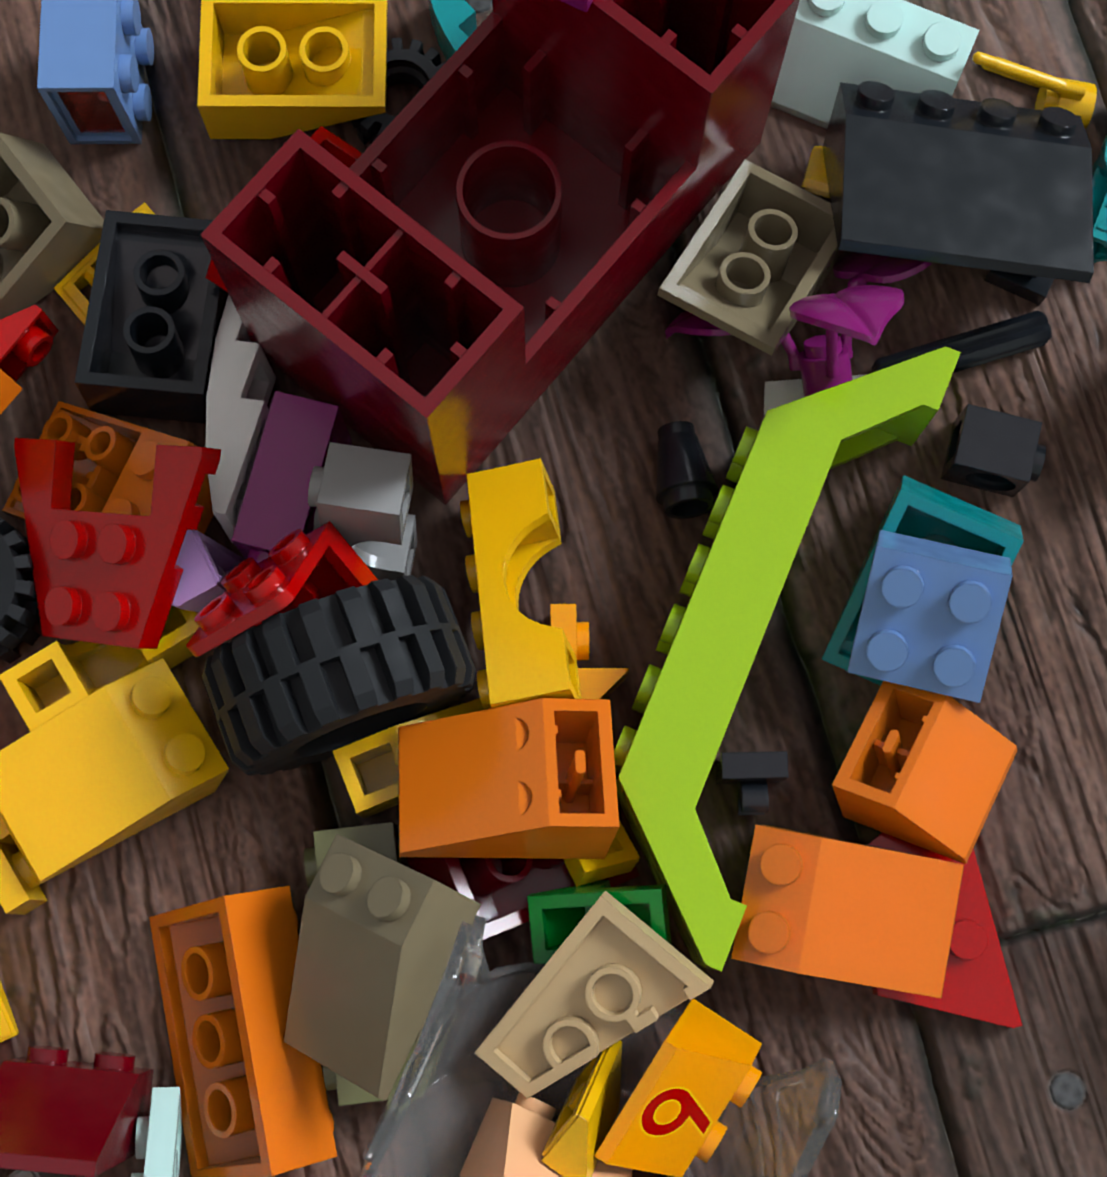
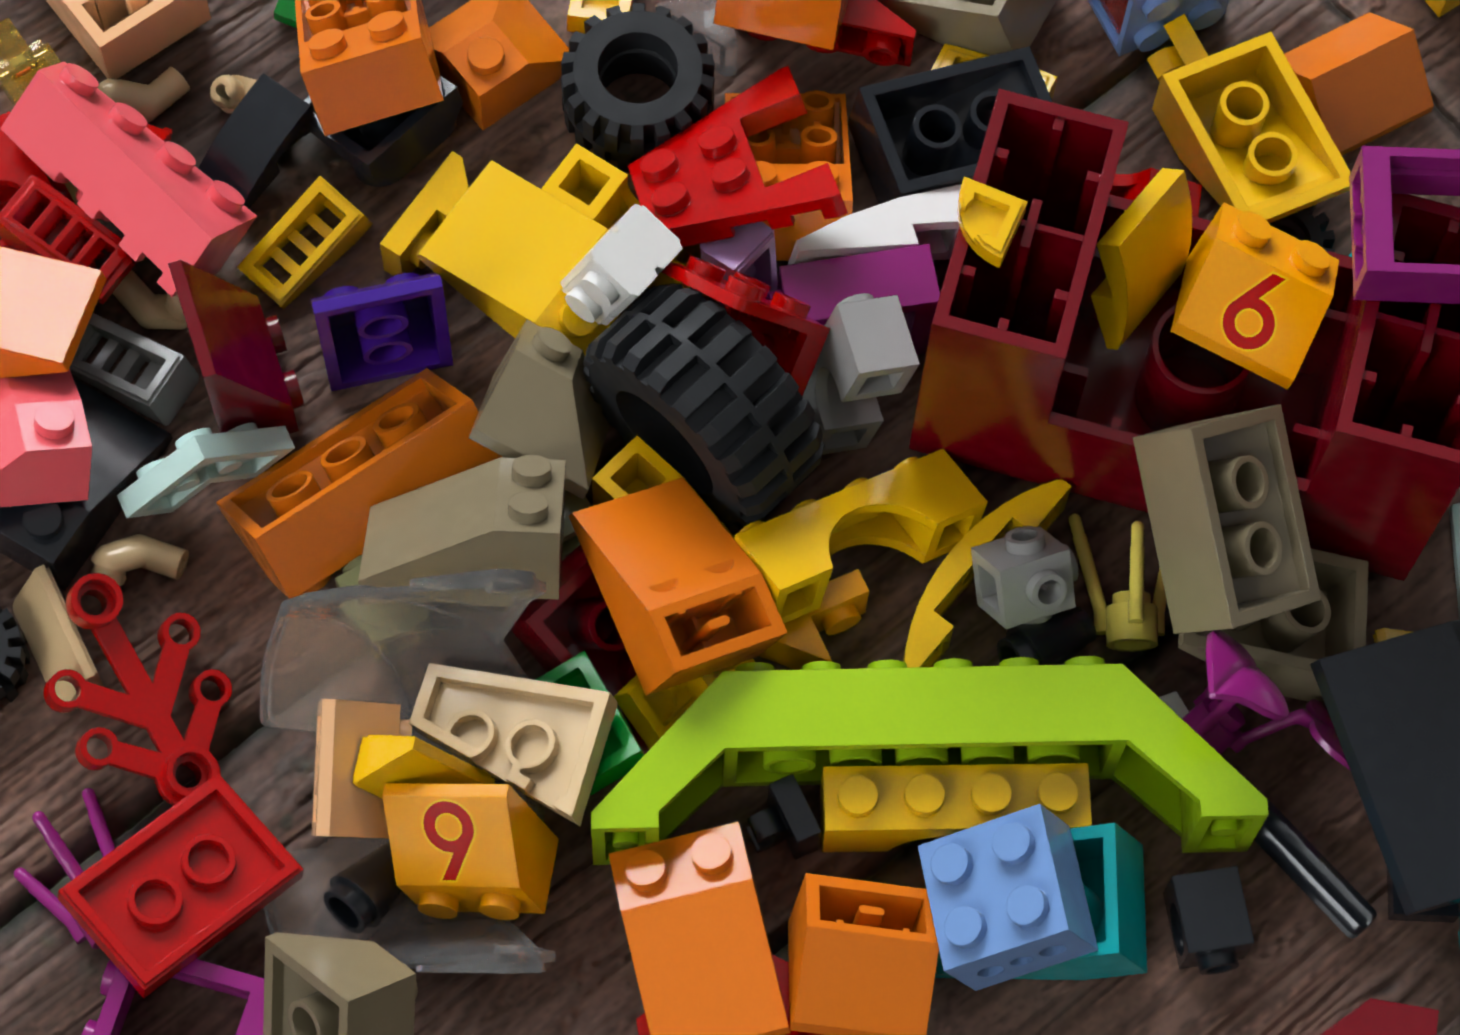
camera: 65 degrees right, 10 degrees down
(91, 951) = (383, 330): none -> dark purple slope
(166, 693) = (620, 266): none -> white brick
(178, 83) = (1186, 48): none -> yellow tile
(262, 831) = (543, 406): none -> dark tan slope
(343, 310) = (988, 219): none -> yellow tile
(404, 182) = (1143, 255): none -> yellow slope
(490, 117) = (1254, 294): none -> light orange slope
(625, 460) = (1024, 577): none -> light grey brick
(630, 572) = (929, 631): none -> yellow slope
(691, 384) = (1131, 619): none -> light yellow plant
(696, 251) = (1227, 520): none -> dark tan slope
(806, 621) = (906, 803): none -> yellow arch

